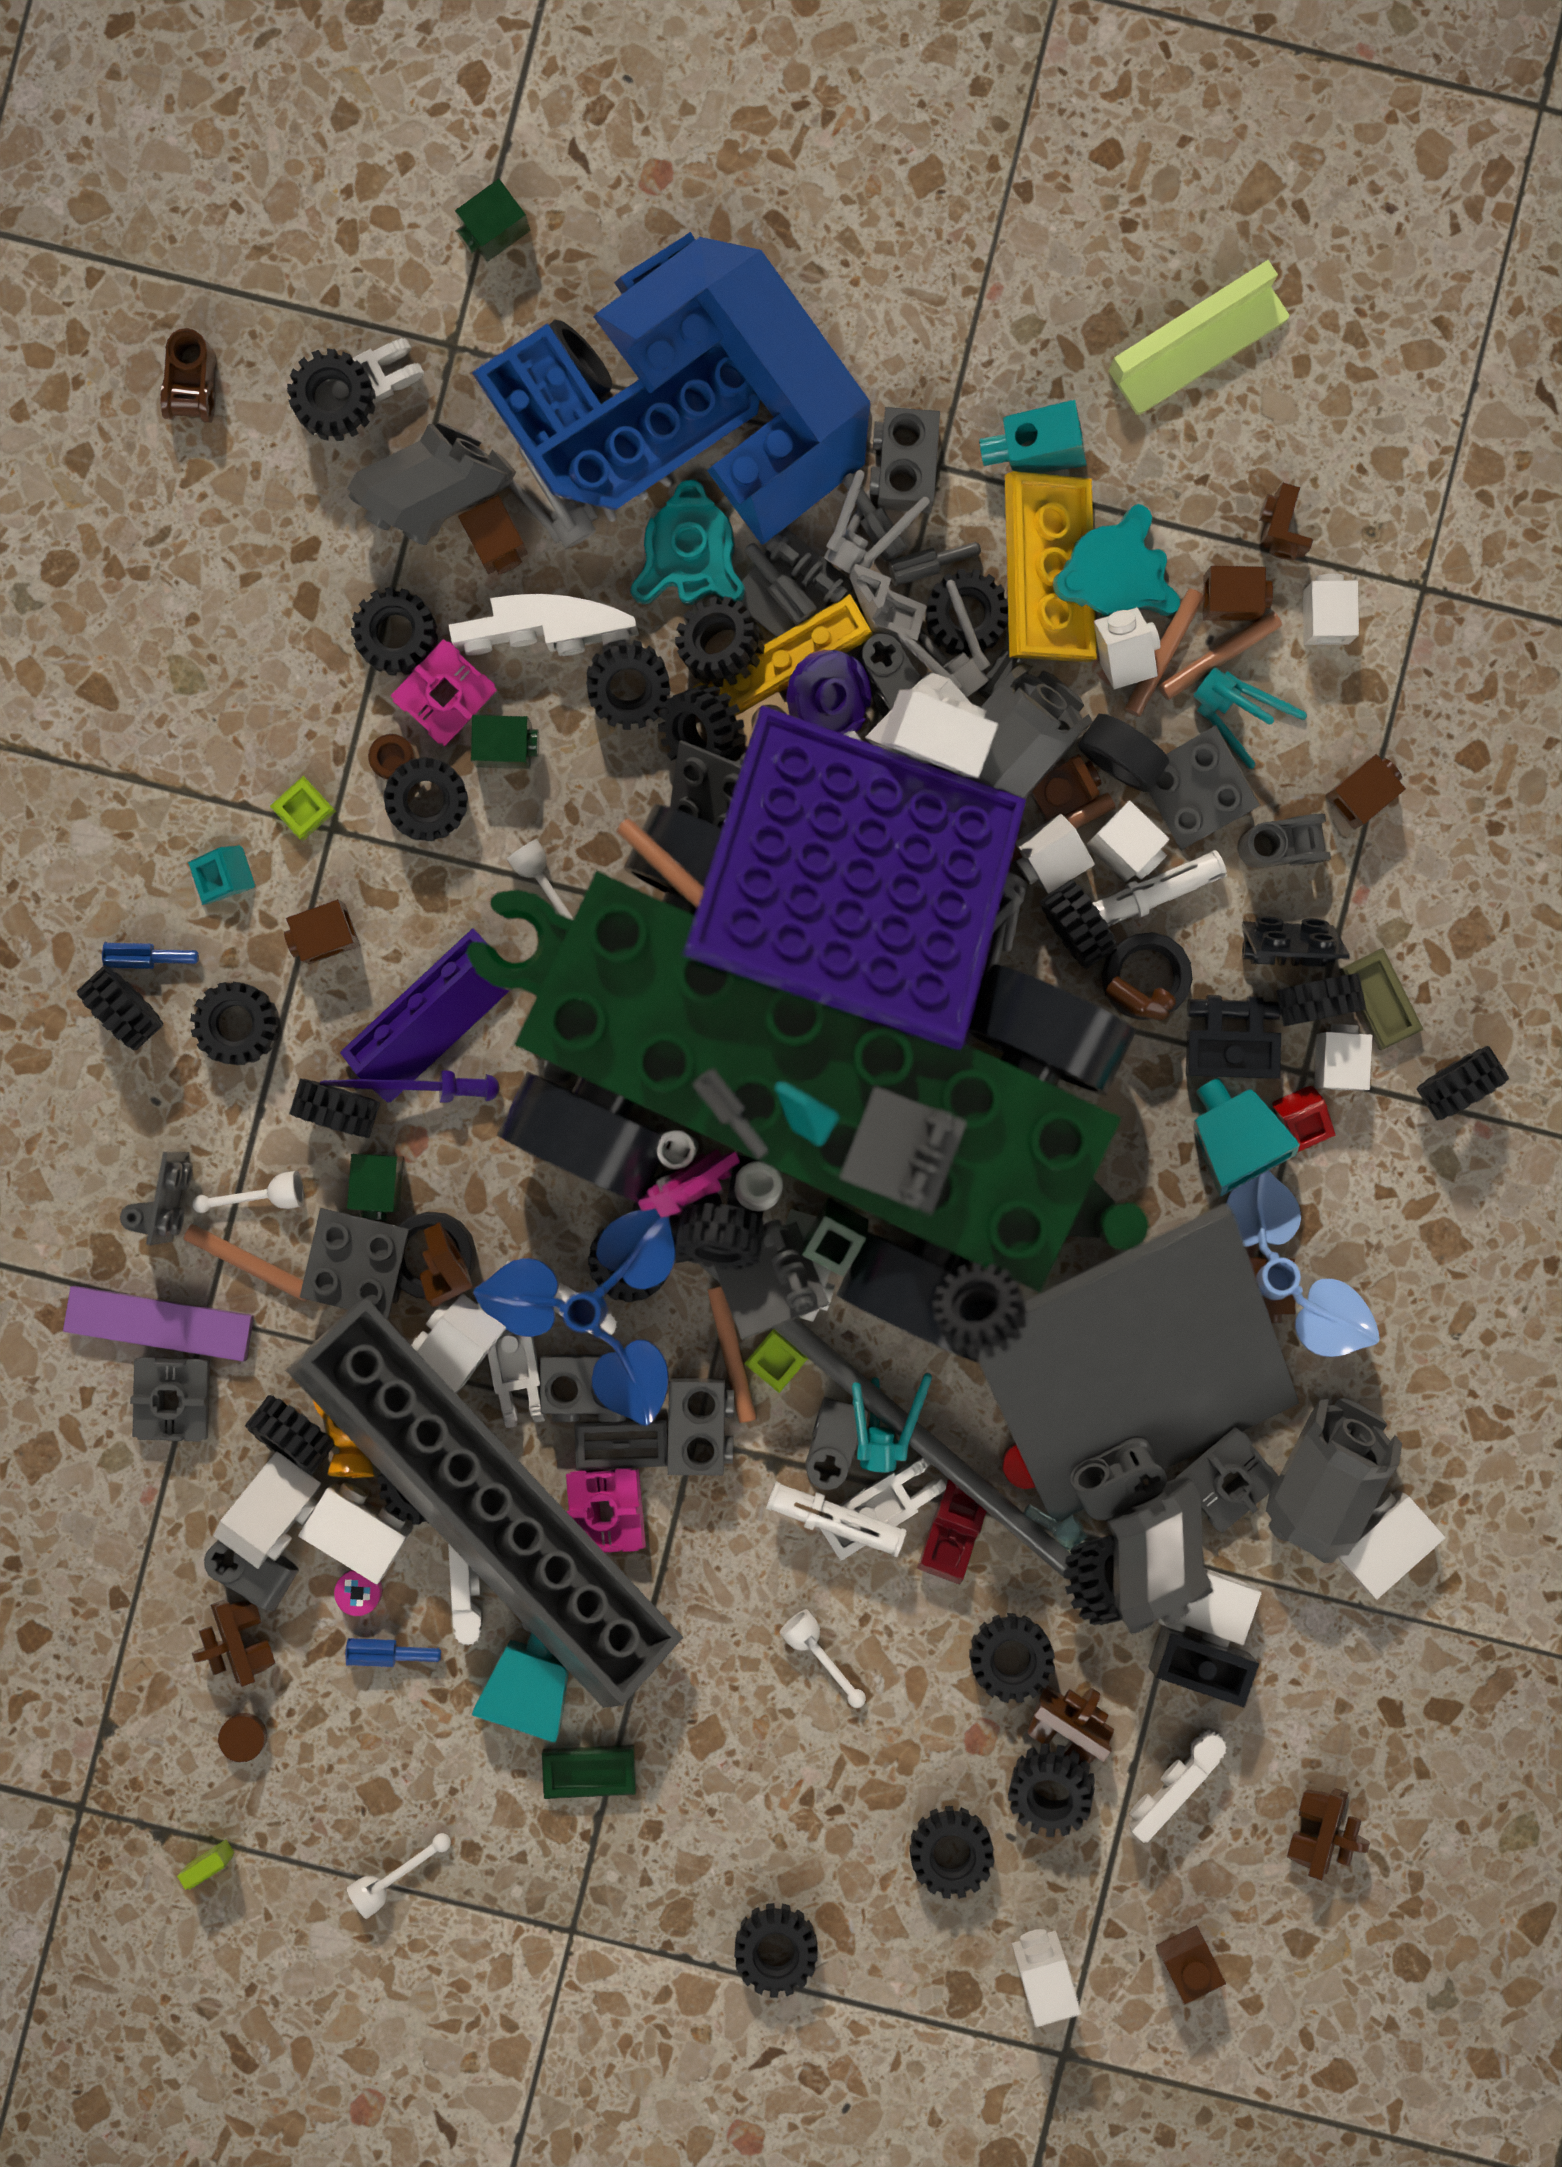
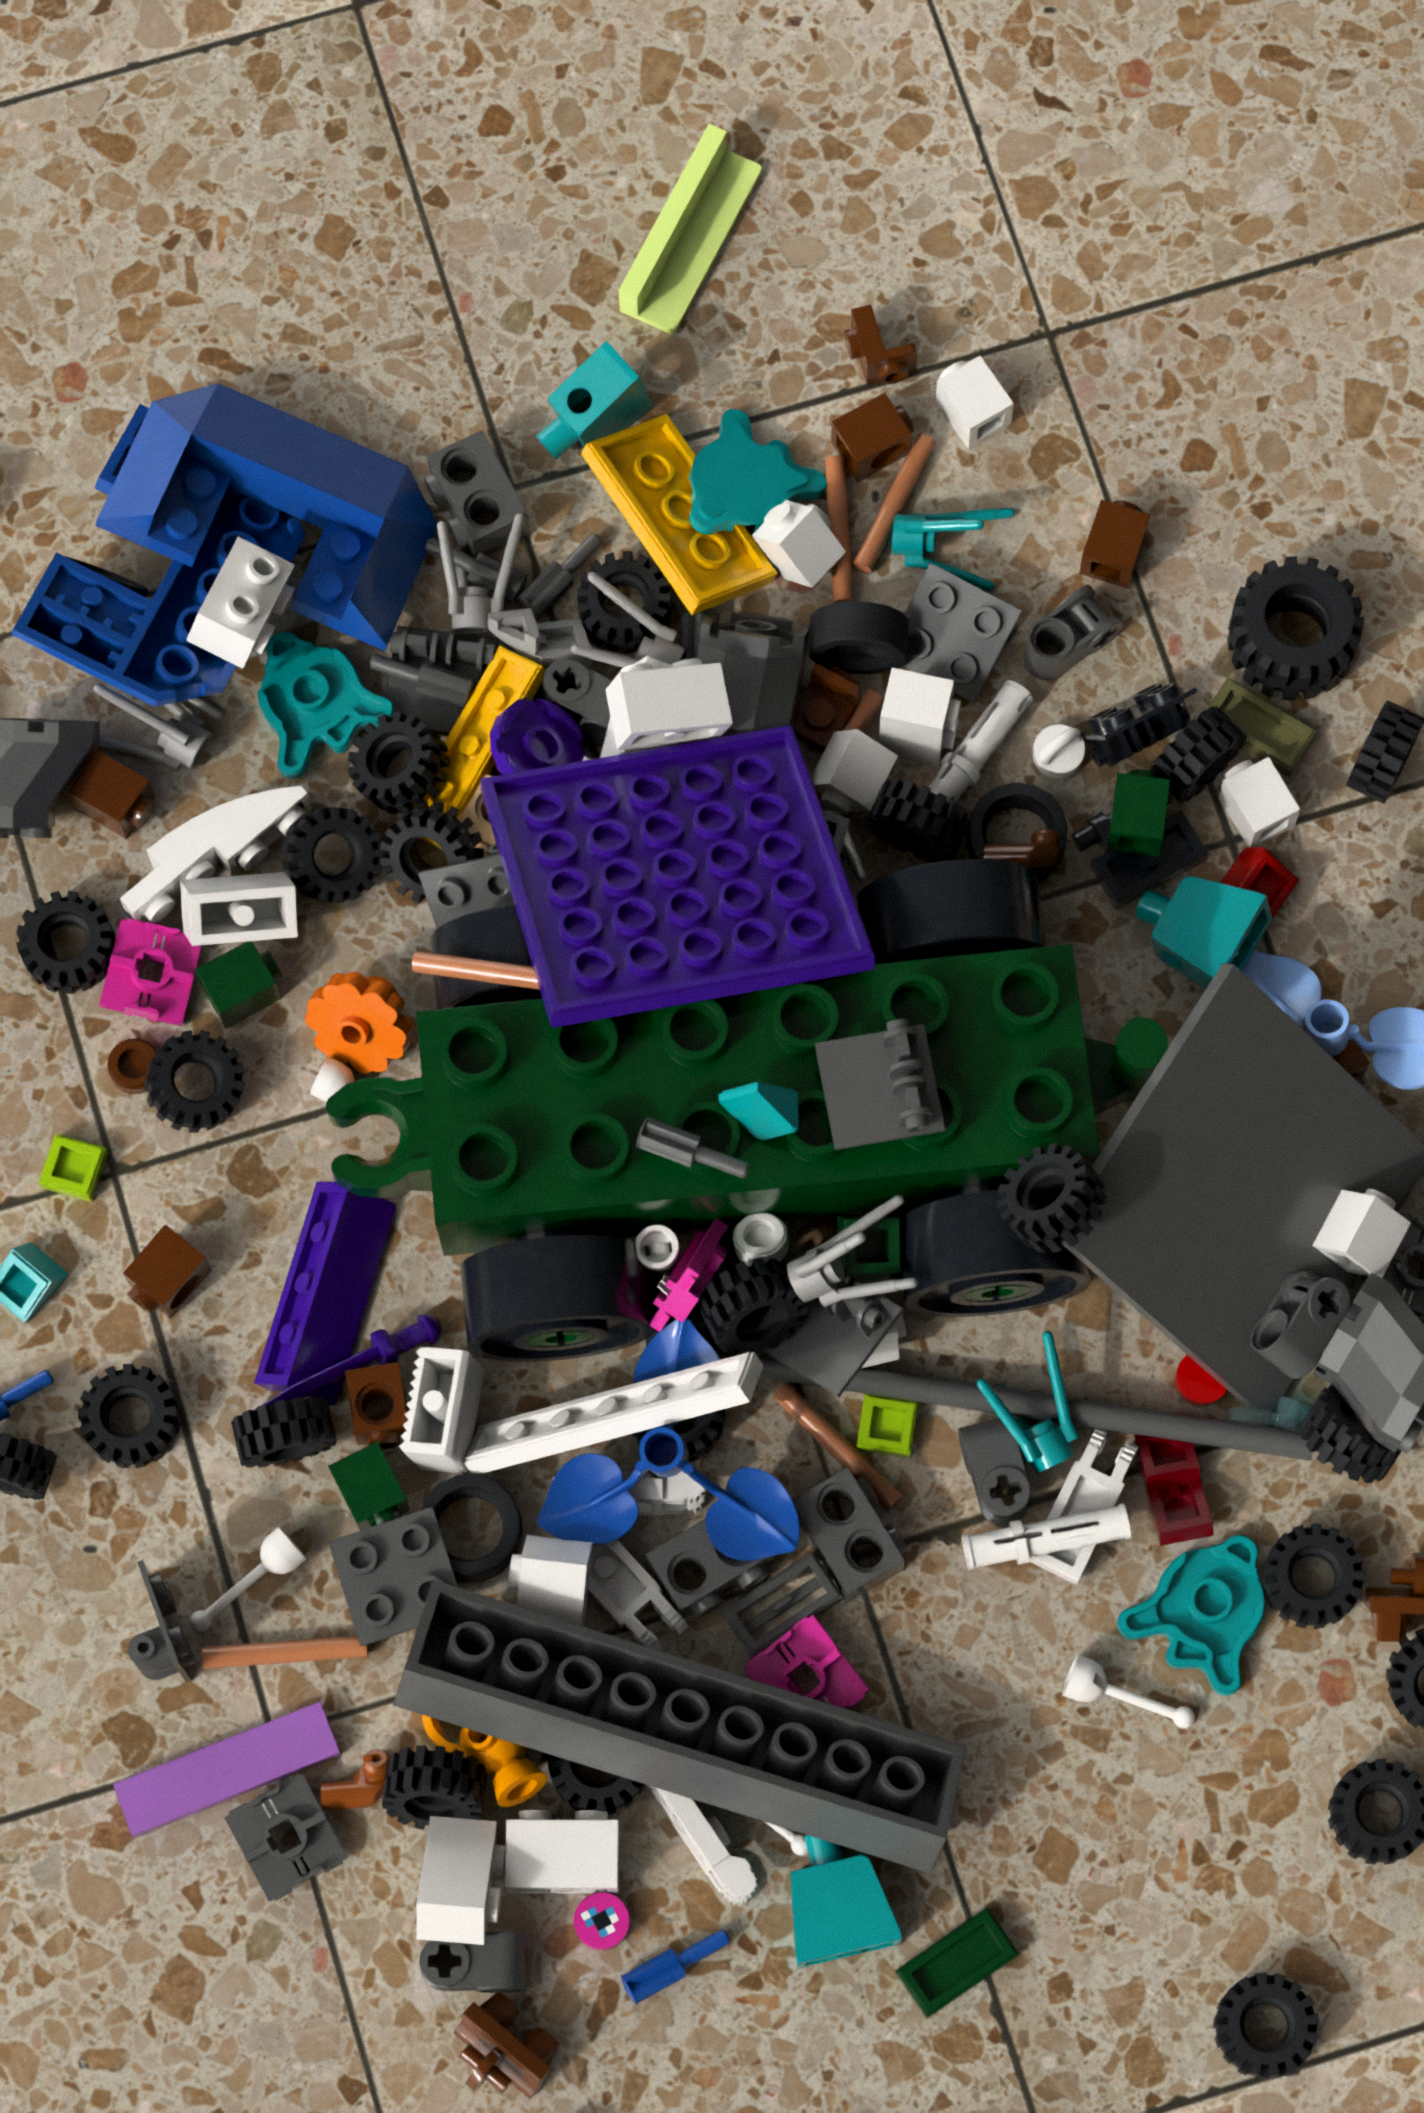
camera: 30 degrees left, 15 degrees down
(244, 1396) = (364, 1787): none -> dark orange arm
(435, 1115) = (373, 1383): none -> reddish brown brick
(447, 1268) = (501, 1515): reddish brown bracket -> none
(458, 1161) = (442, 1409): none -> white brick
(532, 686) = (238, 908): none -> white brick
(573, 827) = (359, 1021): none -> orange plant
(574, 1252) = (614, 1413): none -> white tile
(667, 448) = (241, 602): none -> white brick
(783, 1246) = (821, 1269): none -> light grey plant
(921, 1632) = (1207, 1610): none -> teal tile
(1207, 1440) = (1362, 1232): none -> white brick
(1220, 928) = (1058, 751): none -> white tile
(1246, 1019) = (1138, 812): none -> dark green brick
(1494, 935) = (1302, 590): none -> black tyre

